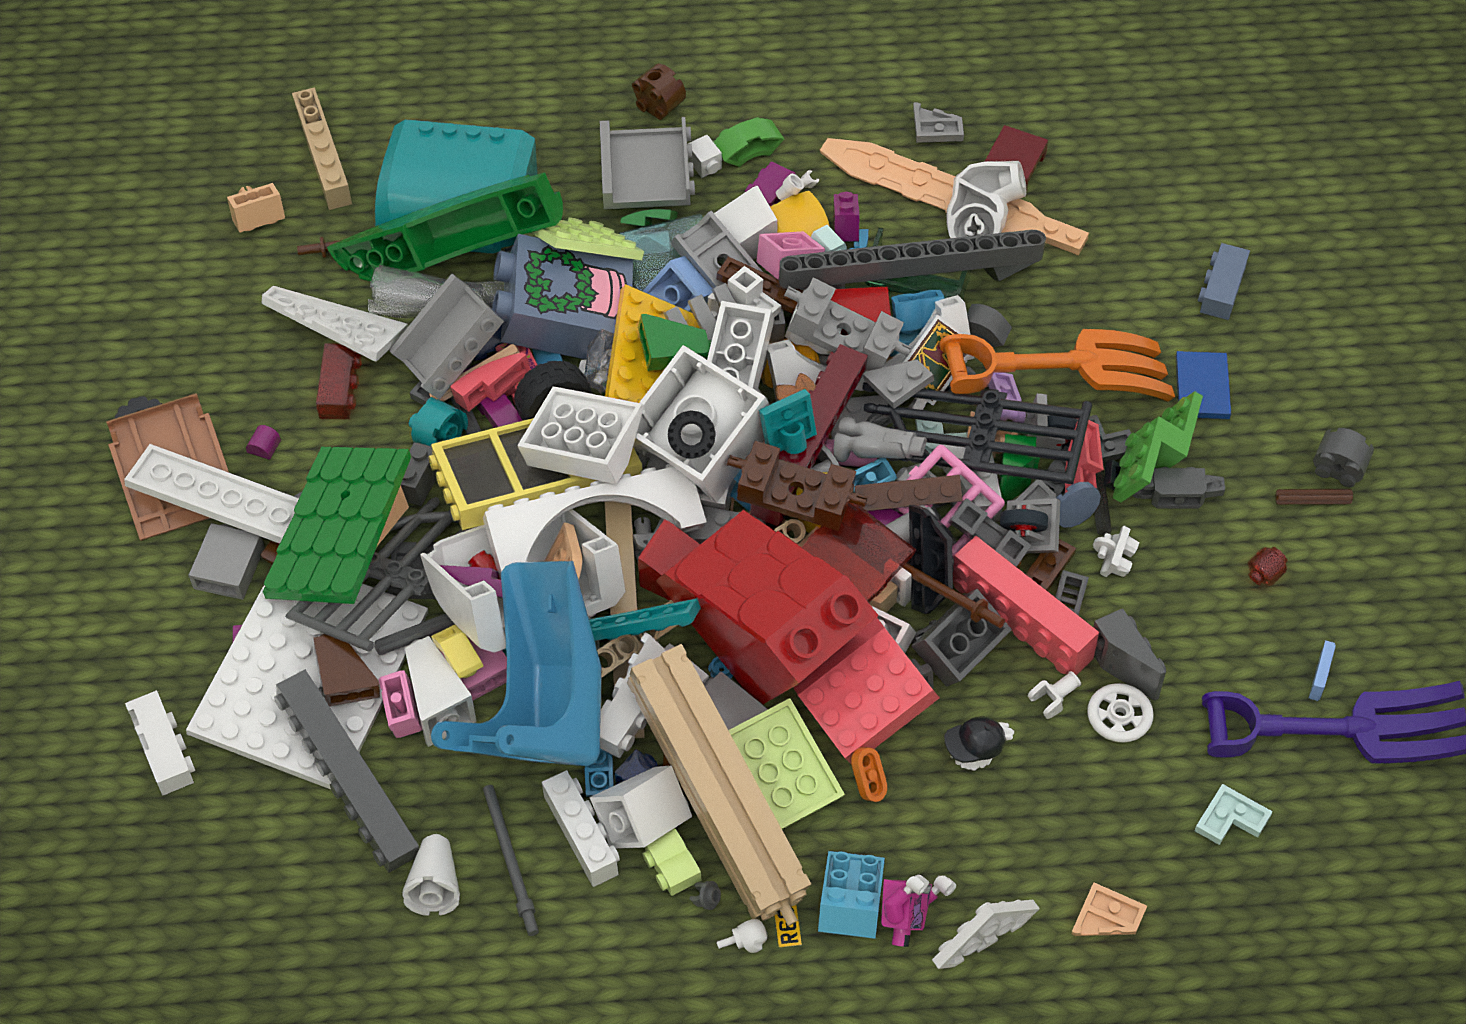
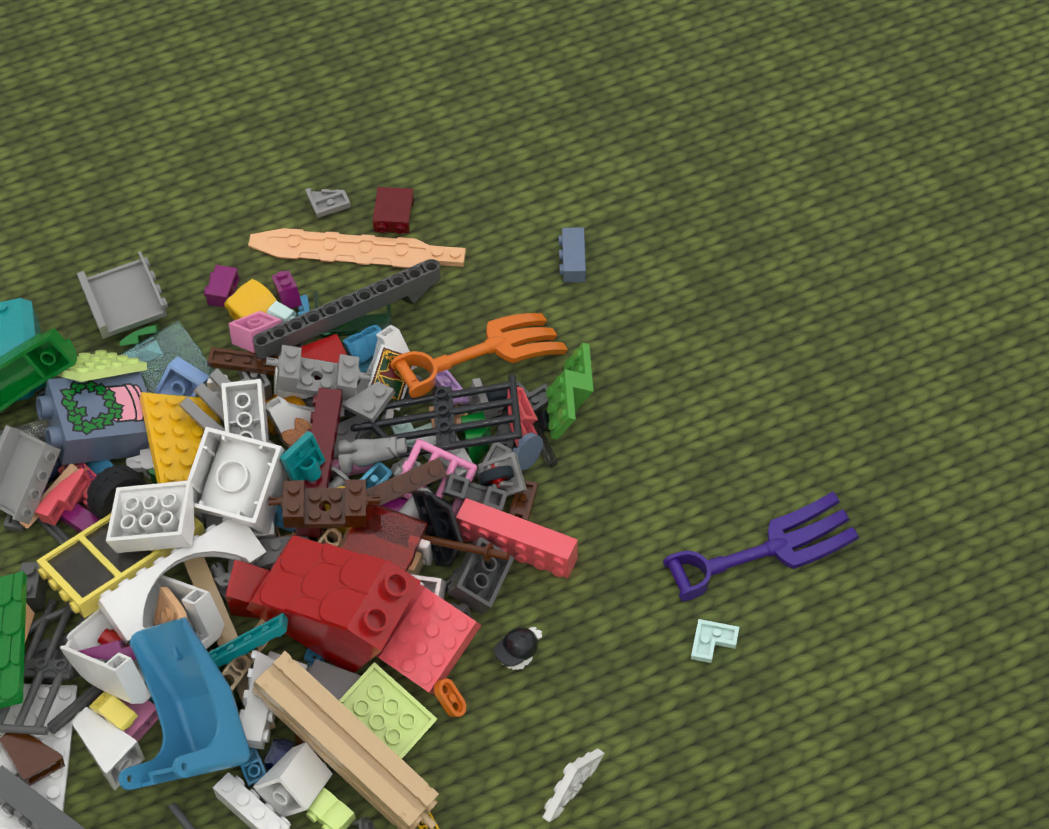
camera: 20 degrees left, 0 degrees up
(400, 704) = (83, 765): bright pink brick -> none
(437, 422) = (34, 542): teal brick -> none
(599, 359) = (141, 455): clear brick -> none
(658, 91) = (112, 236): reddish brown brick -> none
(664, 338) = (189, 425): green slope -> none
(703, 423) = (222, 491): black tyre -> none
(705, 156) = (165, 275): white brick -> none
(706, 244) = (191, 341): light grey piece -> none
(748, 140) = (192, 254): bright green brick -> none
(748, 218) = (210, 321): white slope -> none
(748, 290) = (236, 370): white brick -> none
(793, 185) = (240, 277): white brick -> none
(851, 894) = (468, 790): medium azure slope -> none
(907, 904) = (510, 783): dark pink torso -> none
(982, 197) = (380, 247): white piece -> none
(988, 324) = (418, 338): dark grey brick -> none
(1055, 692) = (560, 592): white piece -> none
(1074, 580) = (545, 506): dark grey slope -> none
(1108, 914) = (653, 739): light nougat wing -> none
(1112, 548) = (563, 474): white hips -> none
(1117, 733) = (618, 578): white plate -> none
(1128, 654) = (602, 548): dark grey slope -> none
(1181, 488) = (596, 414): dark grey hinge -> none
(1207, 376) = (585, 328): blue tile -> none
(1267, 566) = (674, 452): clear red head -> none
(1314, 496) = (688, 391): reddish brown axle -> none
(1322, 670) = (738, 514): light blue tile -> none
(1343, 456) = (699, 356): dark grey brick -> none

